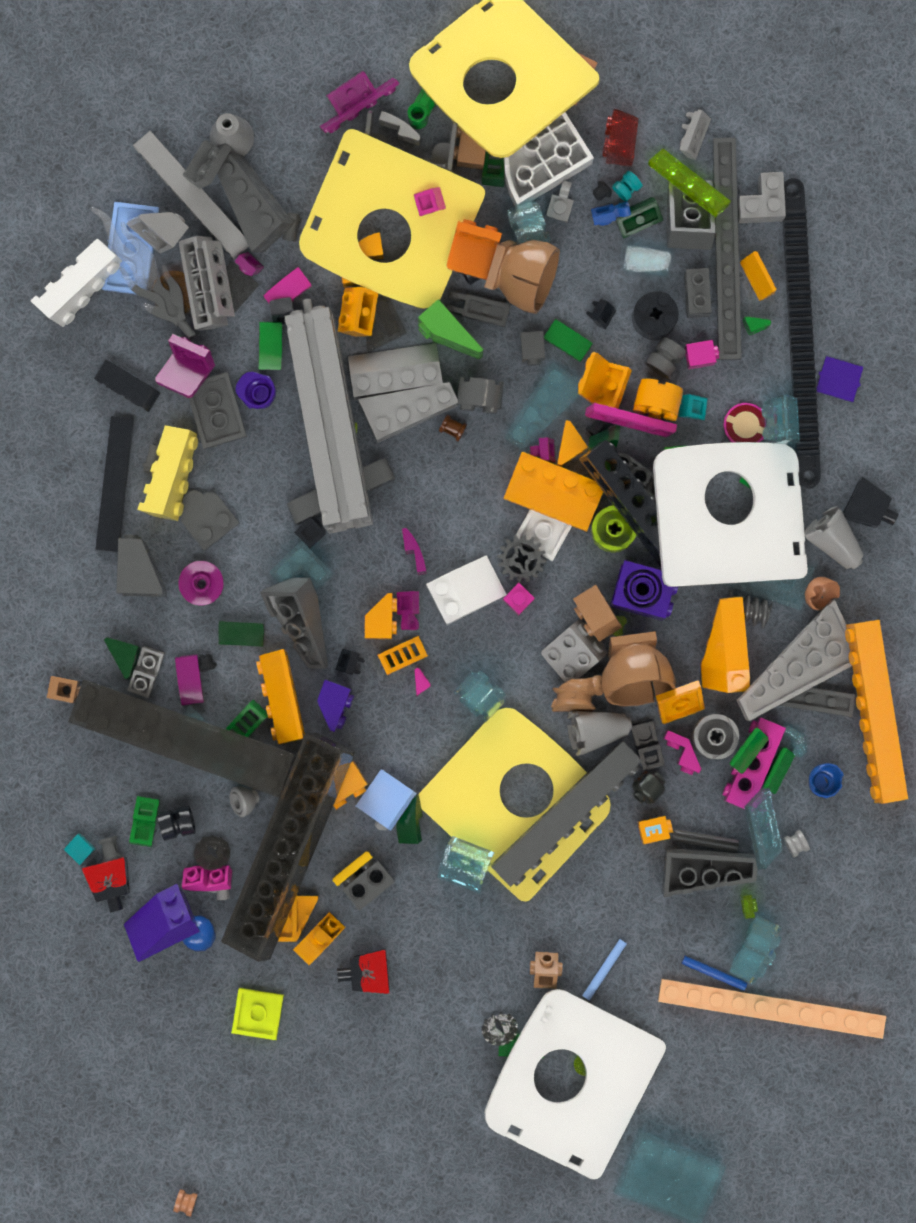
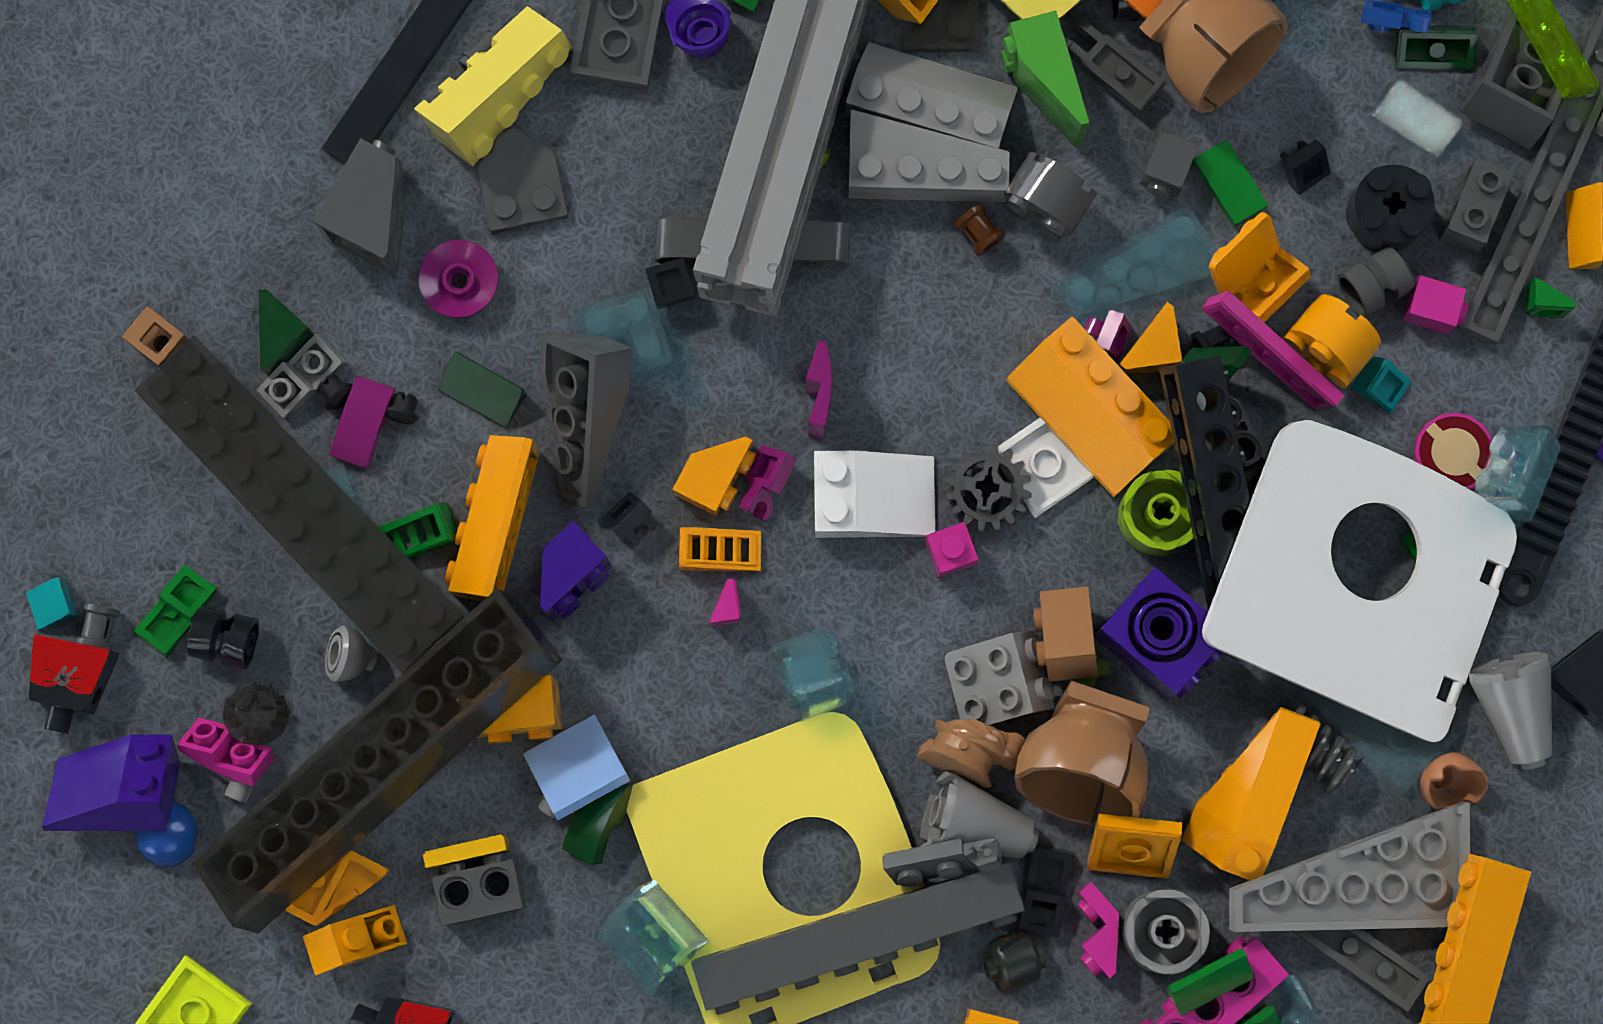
camera: 30 degrees right, 5 degrees down
(168, 671) = (335, 392): none -> black piece
(590, 756) = (942, 860): none -> dark grey hinge

